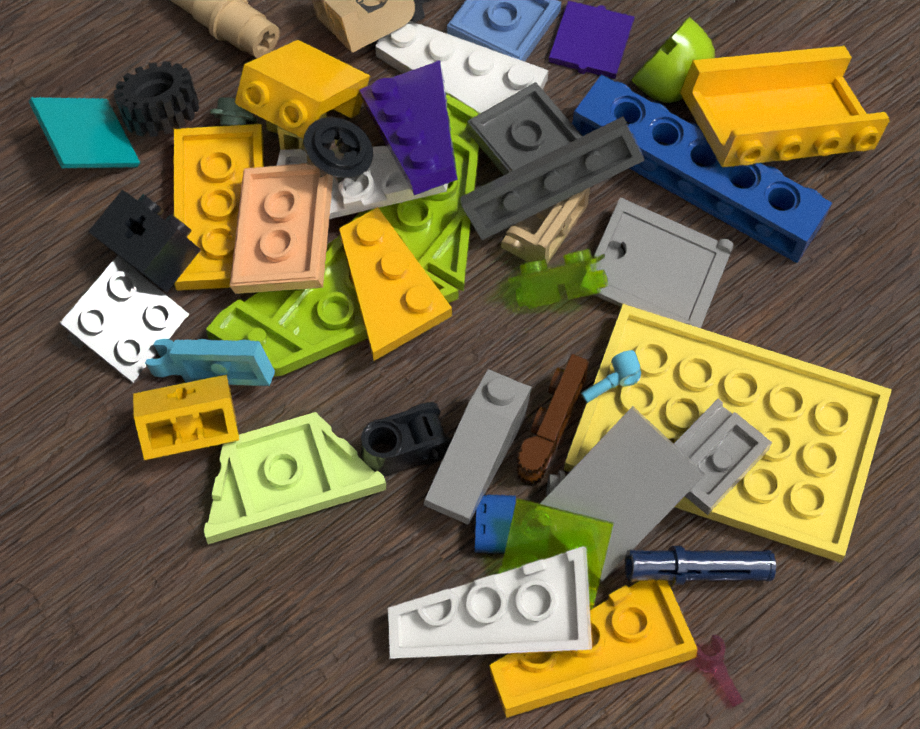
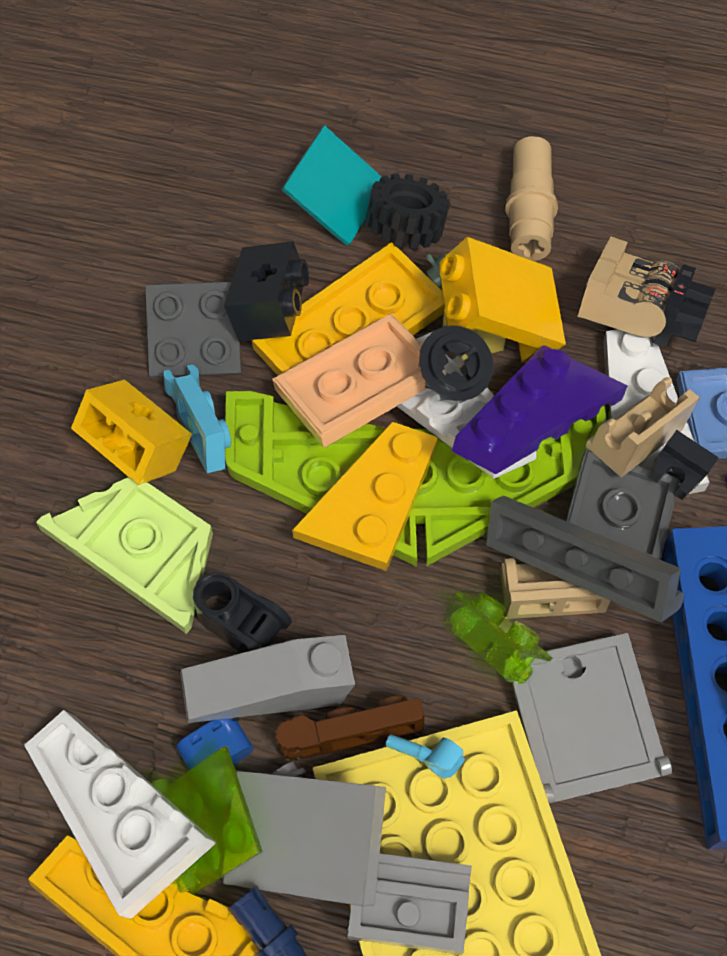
camera: 55 degrees right, 0 degrees up
(482, 74) = (642, 429): none -> tan hinge
(530, 66) = (684, 460): none -> black tile

